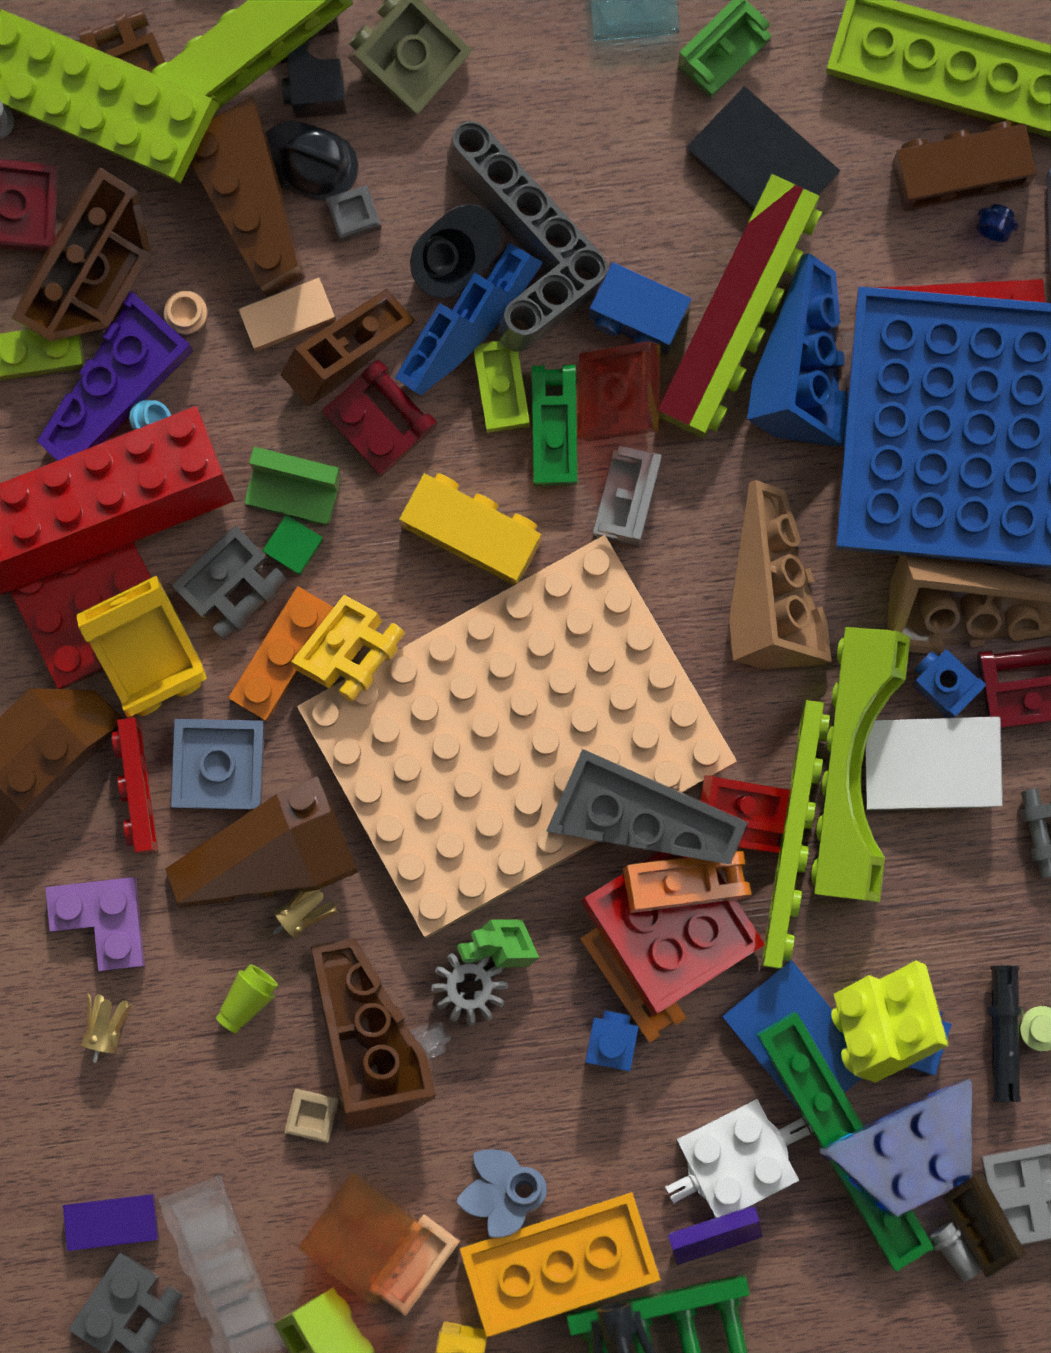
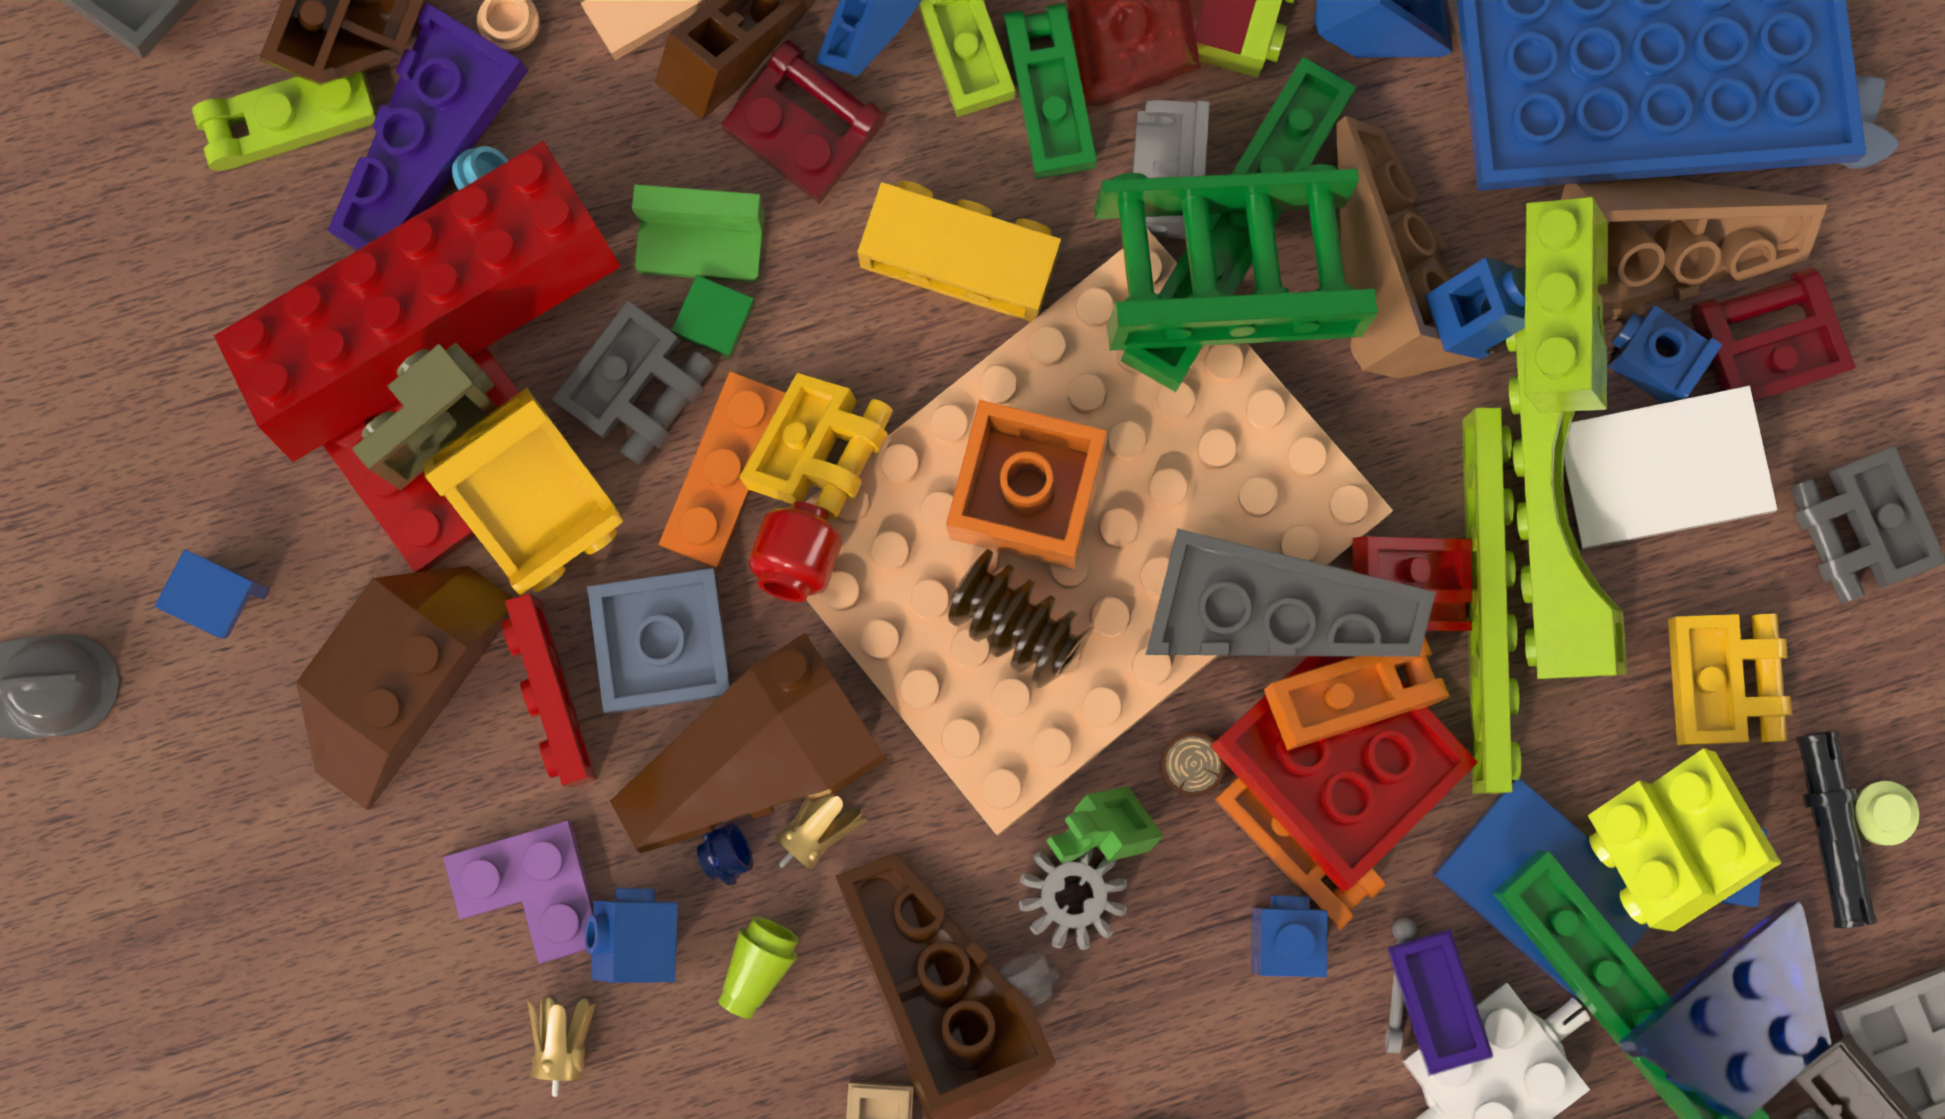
camera: 15 degrees left, 0 degrees up
(97, 575) = (440, 400): none -> olive plate
(165, 963) = (632, 938): none -> blue brick
(237, 918) = (725, 854): none -> clear blue plate
(320, 720) = (795, 552): none -> red head
(461, 794) = (1015, 621): none -> dark brown piece
(485, 701) = (1026, 484): none -> orange brick
(567, 913) = (1191, 765): none -> tile
(628, 605) = (1208, 314): none -> green fence
(667, 543) = (1283, 143): none -> green plate
(694, 1052) = (1403, 930): none -> light grey hinge
(706, 1103) = (1440, 1003): none -> dark purple tile
(829, 631) = (1479, 307): none -> blue brick
(864, 671) = (1562, 332): none -> lime arch
(938, 916) = (1710, 679): none -> yellow plate

